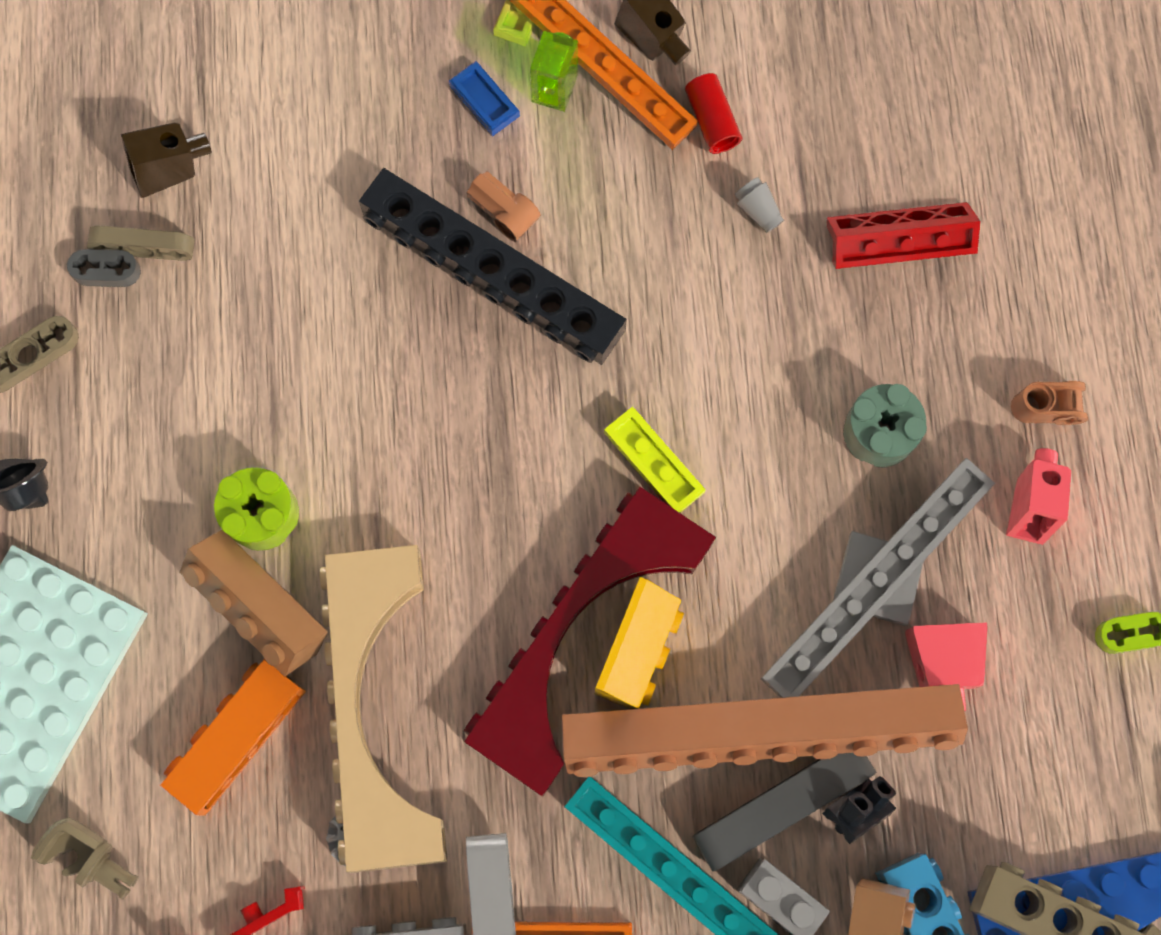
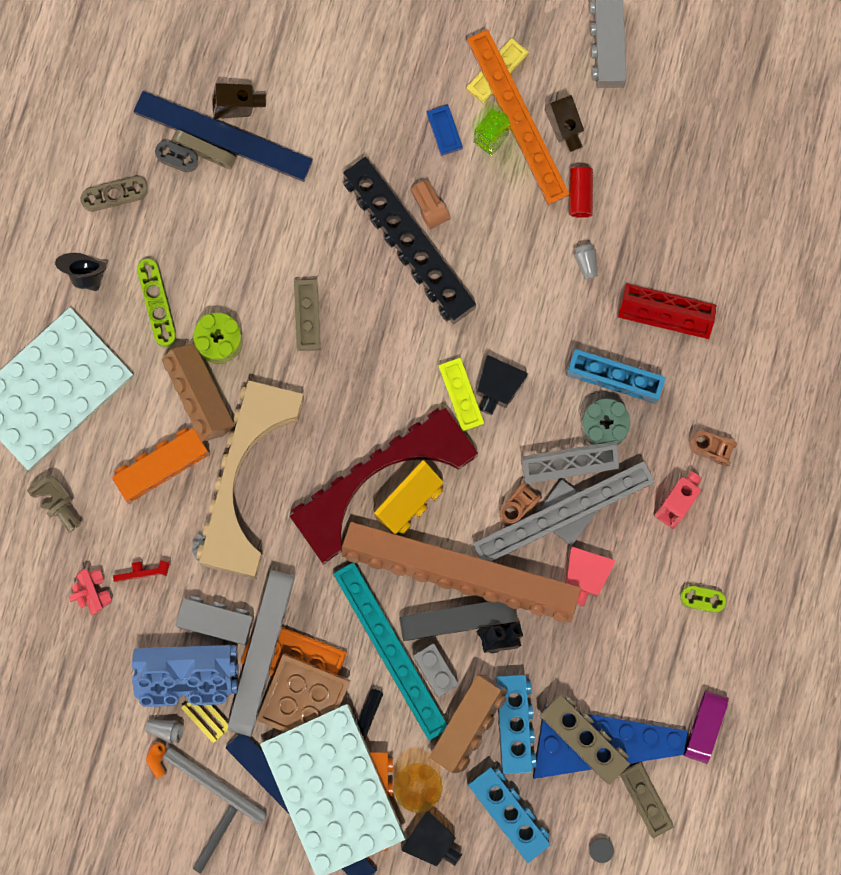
camera: 20 degrees right, 5 degrees up
(147, 489) = (155, 303): none -> lime beam
(178, 214) = (223, 136): none -> dark blue tile
(380, 427) = (307, 315): none -> dark tan plate
(703, 424) = (499, 384): none -> black torso
(806, 586) = (521, 501): none -> nougat piece
(857, 500) = (570, 462): none -> light grey fence
(871, 350) = (616, 376): none -> dark azure brick

